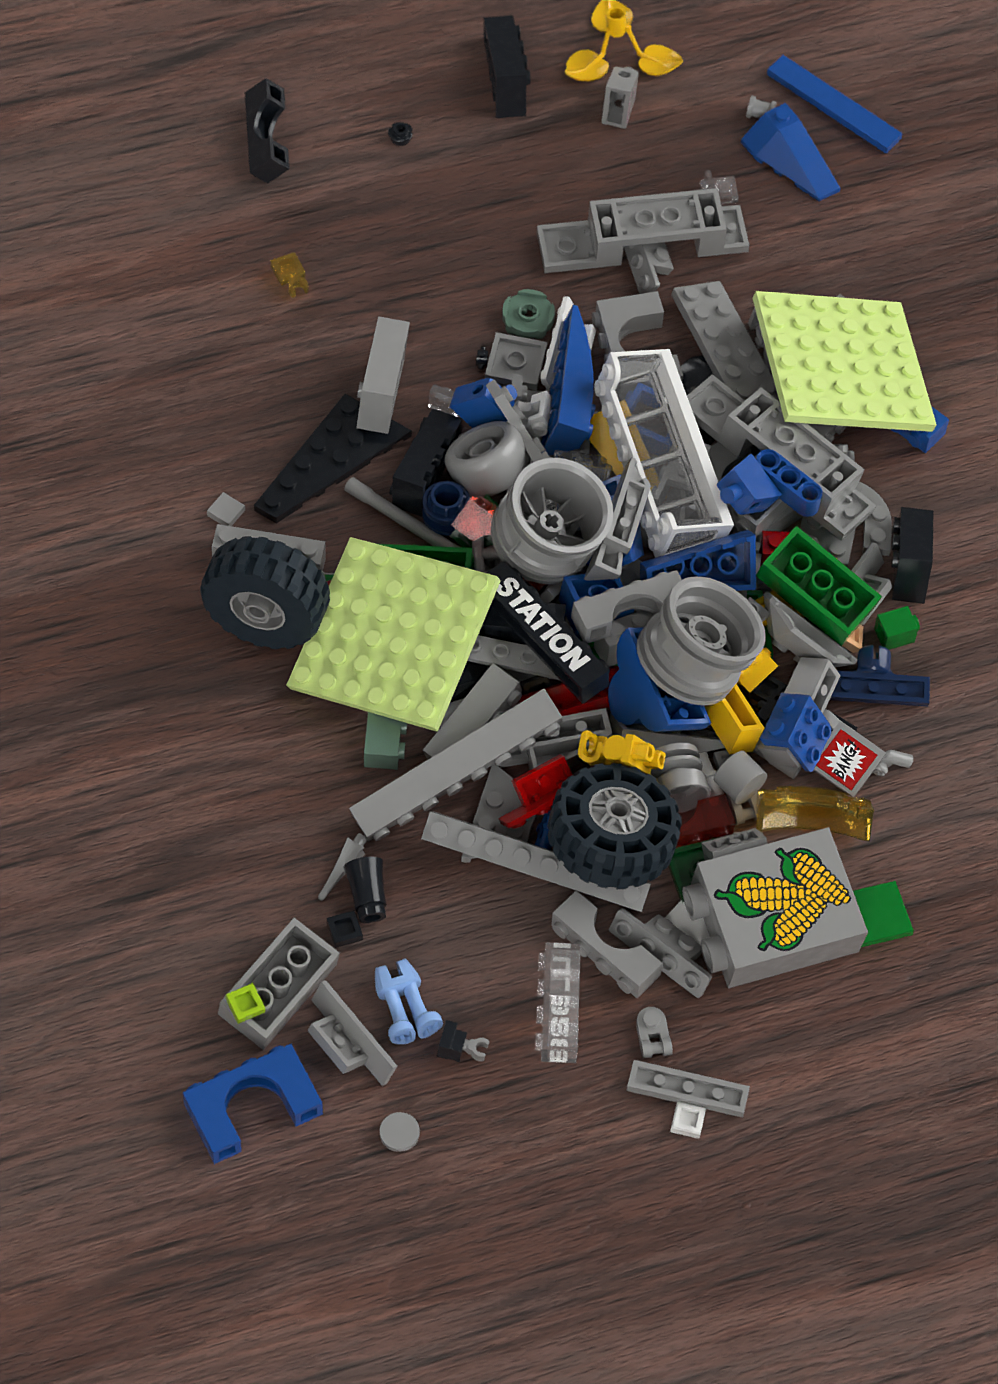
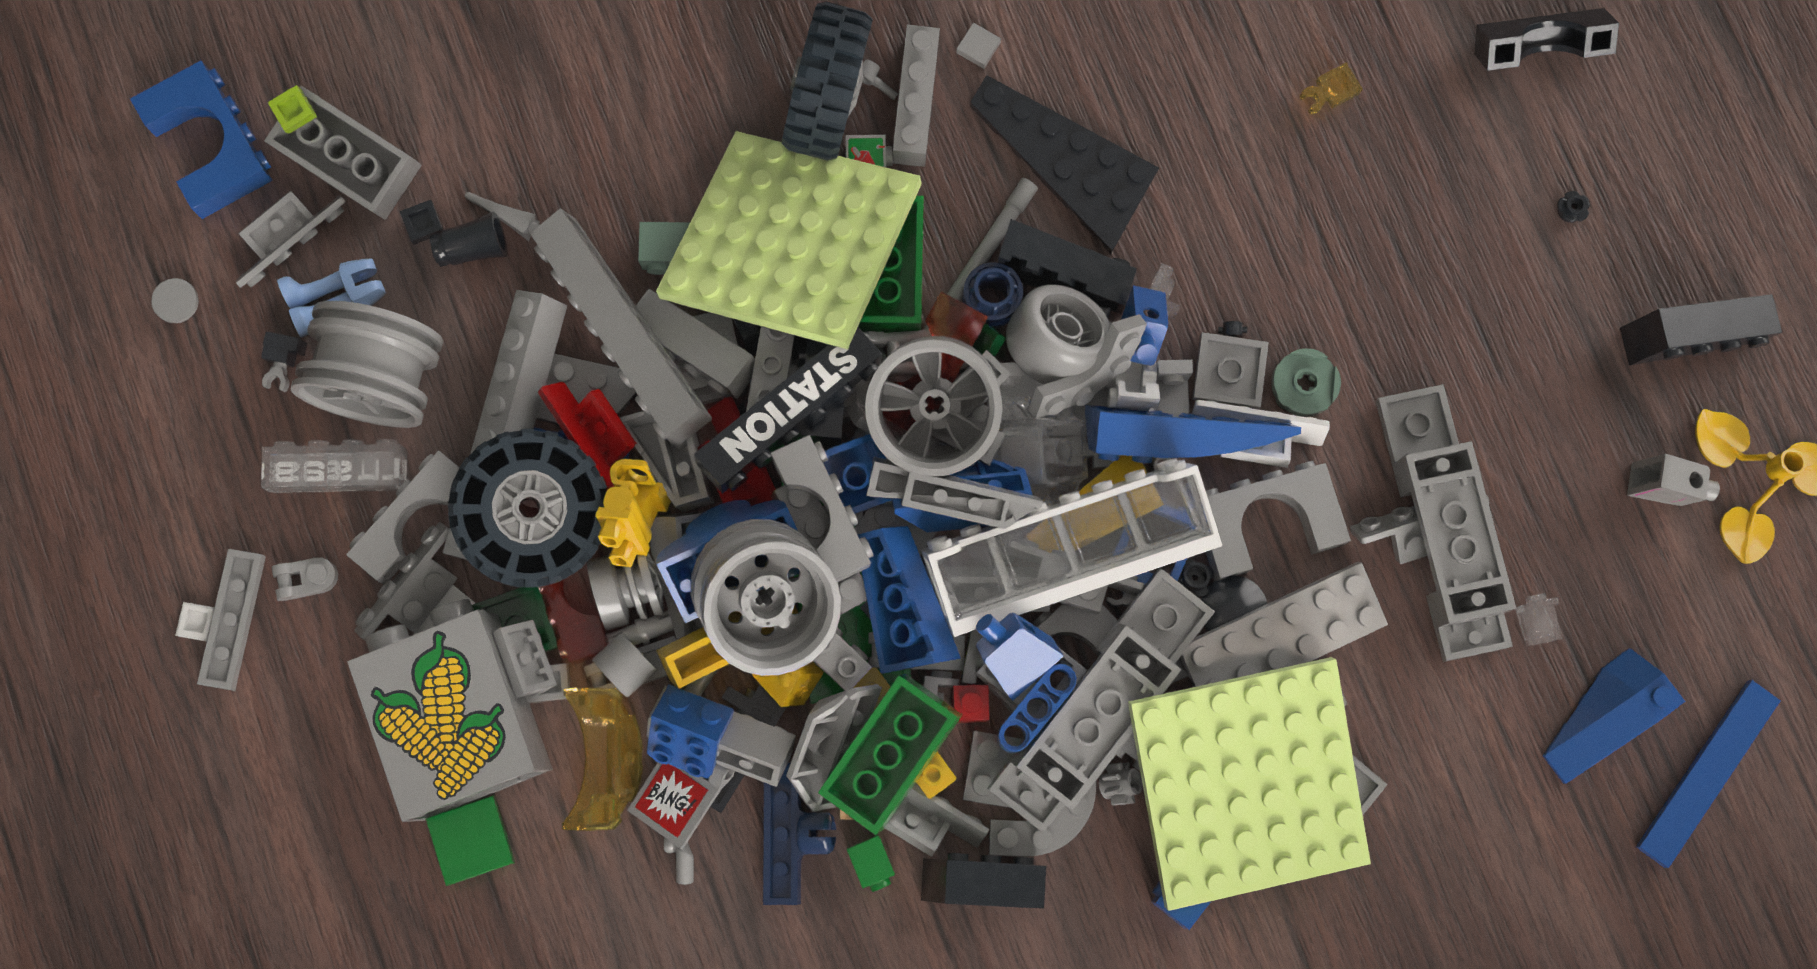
camera: 85 degrees right, 20 degrees up
(382, 375) = (1174, 202): light grey brick -> none
(481, 948) = (367, 364): none -> light grey wheel
(758, 107) = (1681, 671): light grey bush -> none

